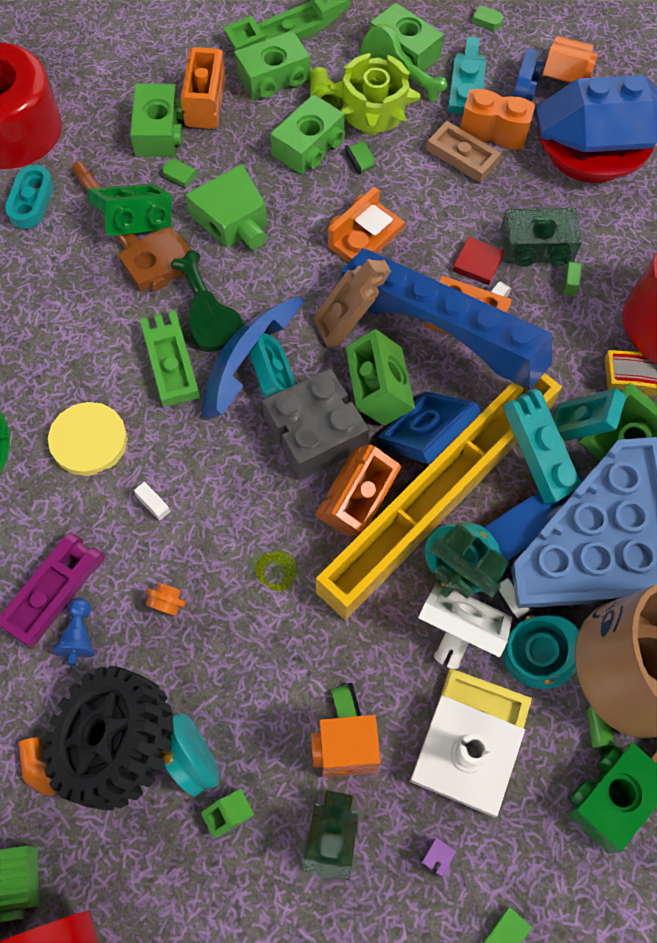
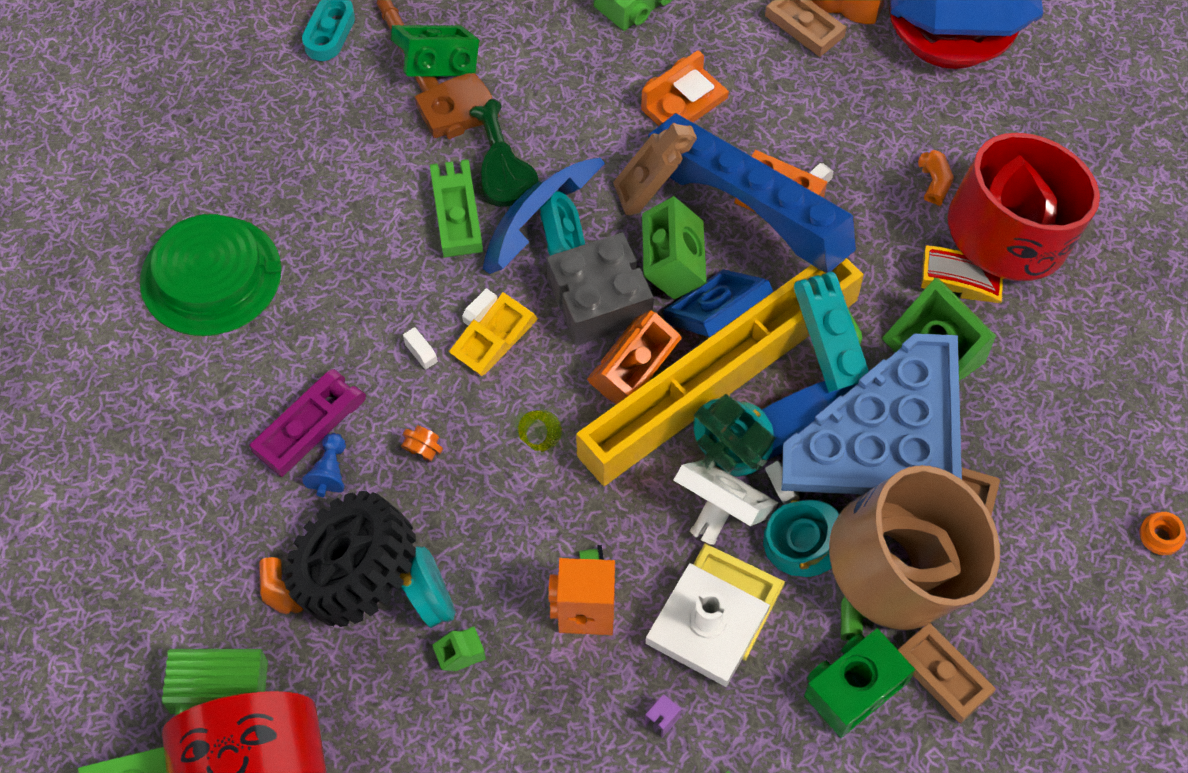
camera: 10 degrees right, 5 degrees down
(87, 438) = (361, 280): light yellow tile -> none
(179, 173) = (490, 17): bright green piece -> none
(204, 455) = (479, 307): none -> white piece
(220, 480) = (488, 340): none -> yellow slope
(230, 208) = (540, 60): bright green torso -> none
(331, 837) = (558, 681): clear green hips -> none
(360, 156) = (690, 17): bright green piece -> none
(478, 261) = (803, 140): red piece -> none
(540, 236) = (874, 119): clear green brick -> none
(572, 278) = (902, 168): bright green piece -> none
(589, 414) = (890, 307): teal plate -> none
(606, 281) = (941, 175): none -> orange arm

